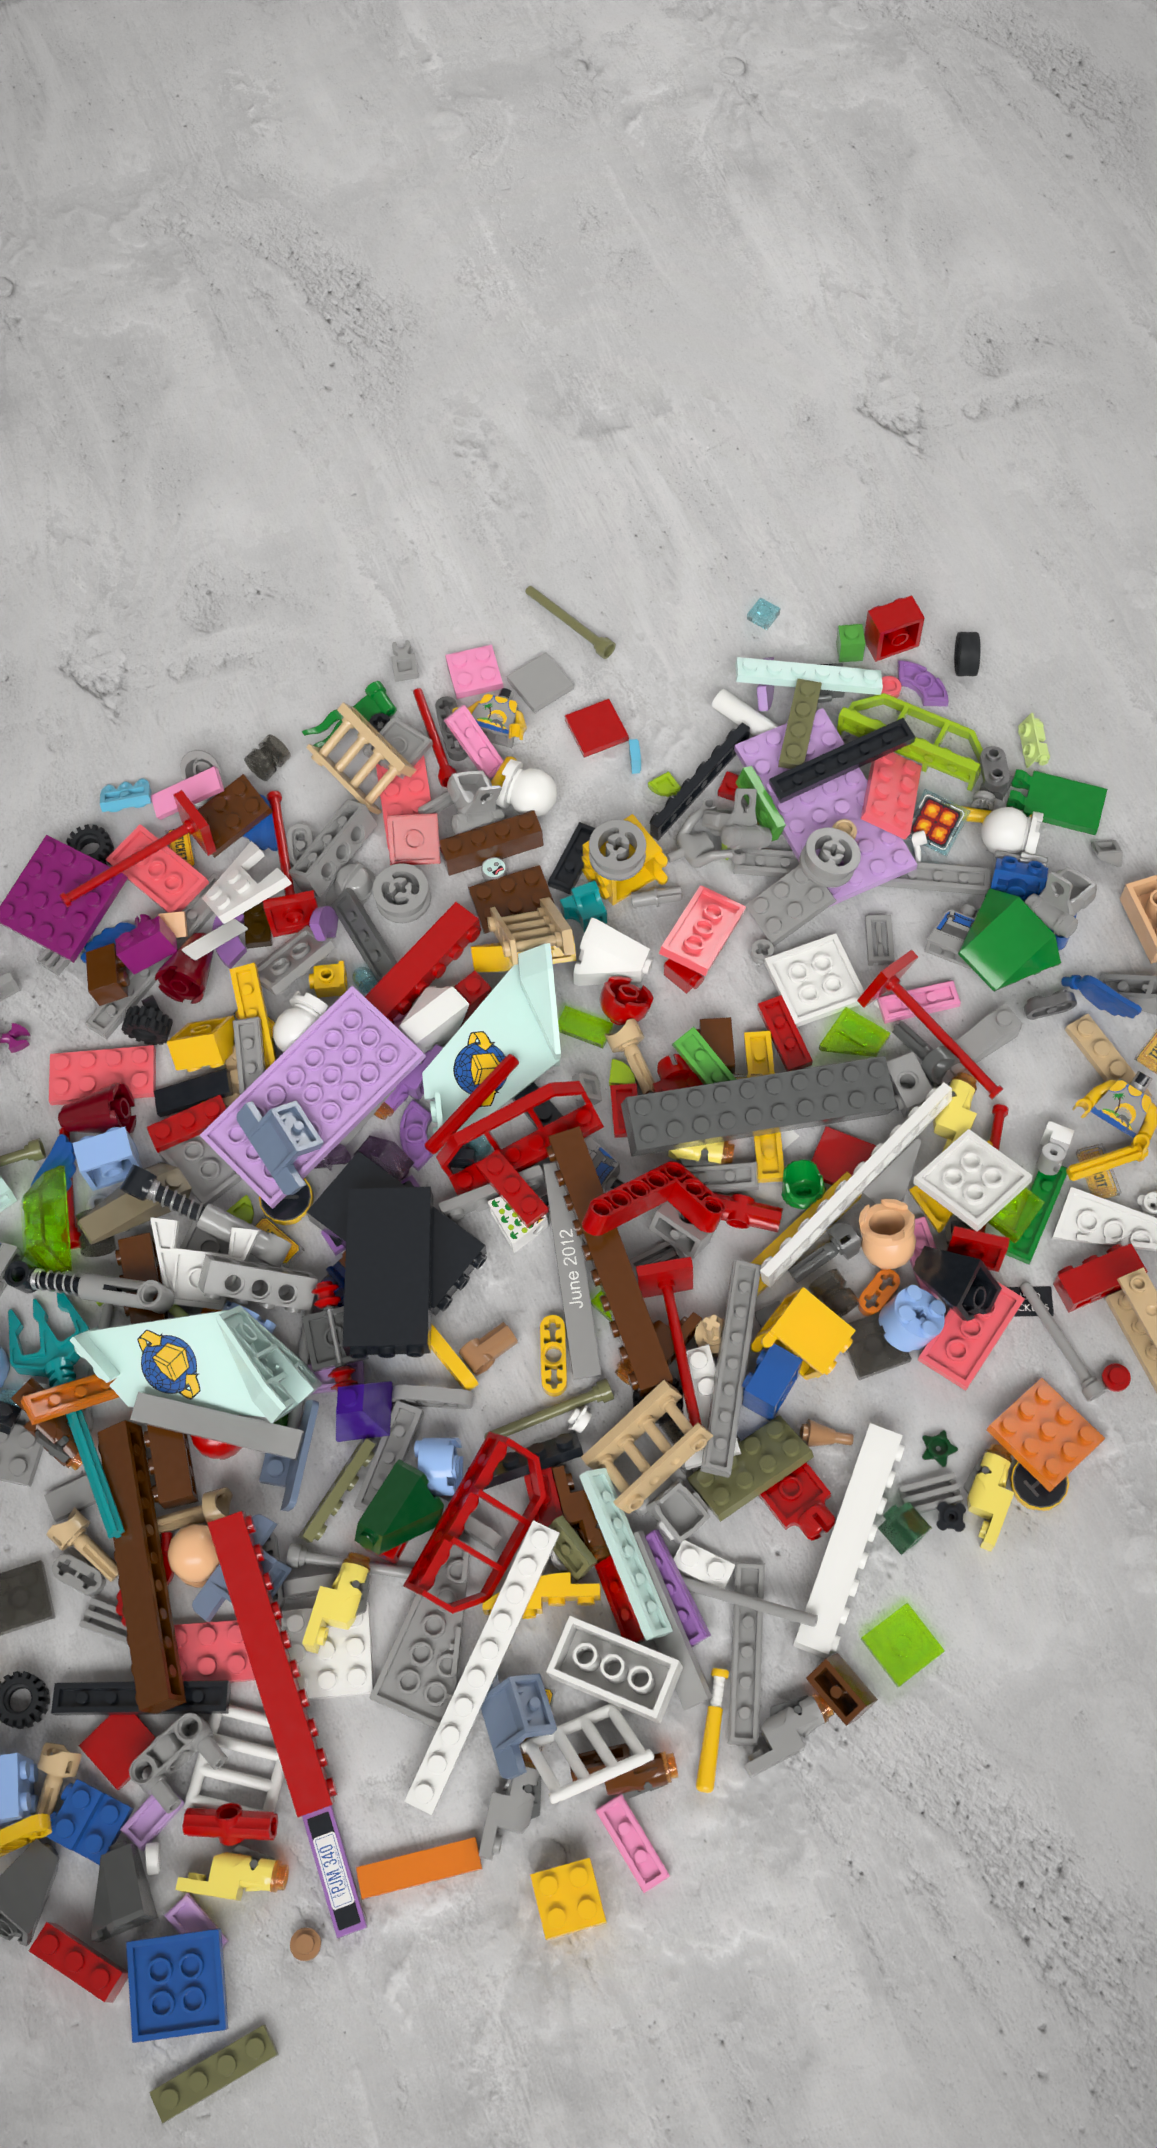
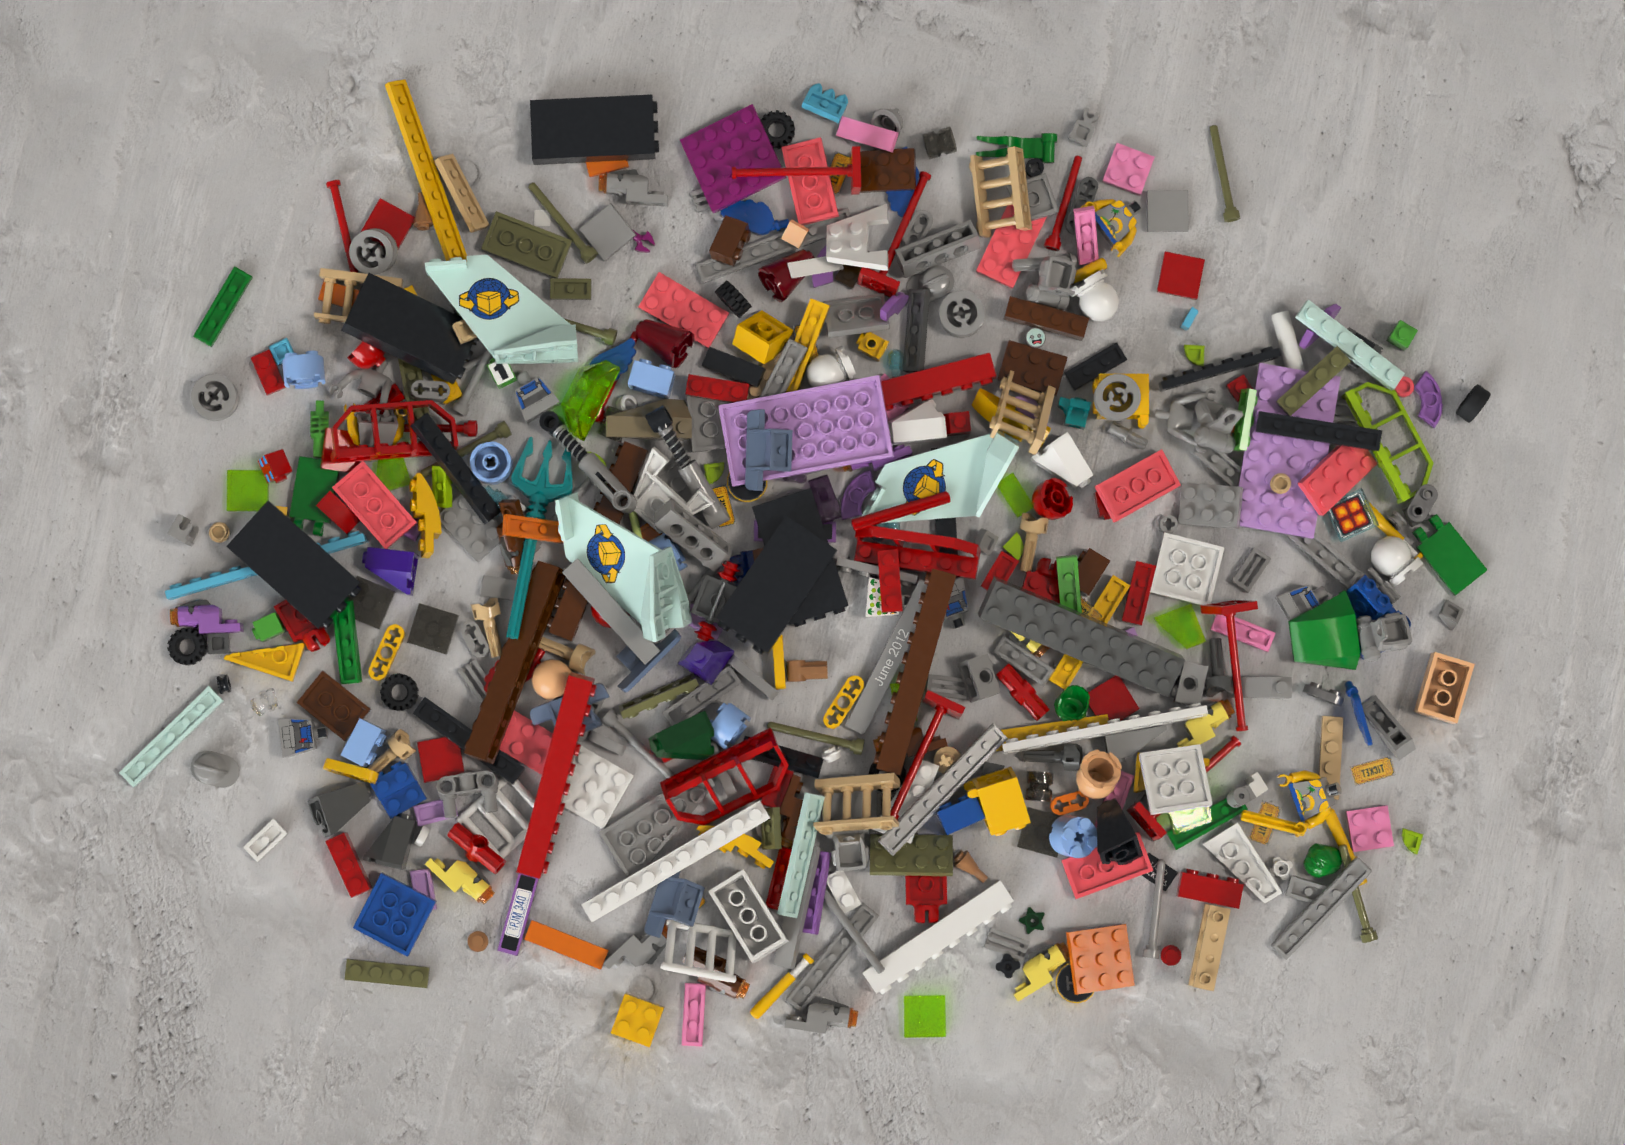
camera: 30 degrees right, 20 degrees up
(146, 943) = (768, 239): magenta brick -> none
(150, 1002) = (744, 284): black axle -> none
(339, 1605) = (618, 769): light yellow plate -> none
(414, 839) = (996, 279): tile -> none
(662, 1184) = (983, 648): red beam -> none
(763, 613) = (1362, 265): clear light blue plate -> none
(825, 867) = (1243, 503): light grey wheel -> none
(841, 1689) = (869, 1017): reddish brown brick -> none
(893, 628) = (1438, 347): red brick -> none
(904, 1527) = (974, 953): clear green brick -> none
(918, 839) = (1330, 519): white hand -> none
(1030, 733) = (1471, 491): yellowish green hinge -> none

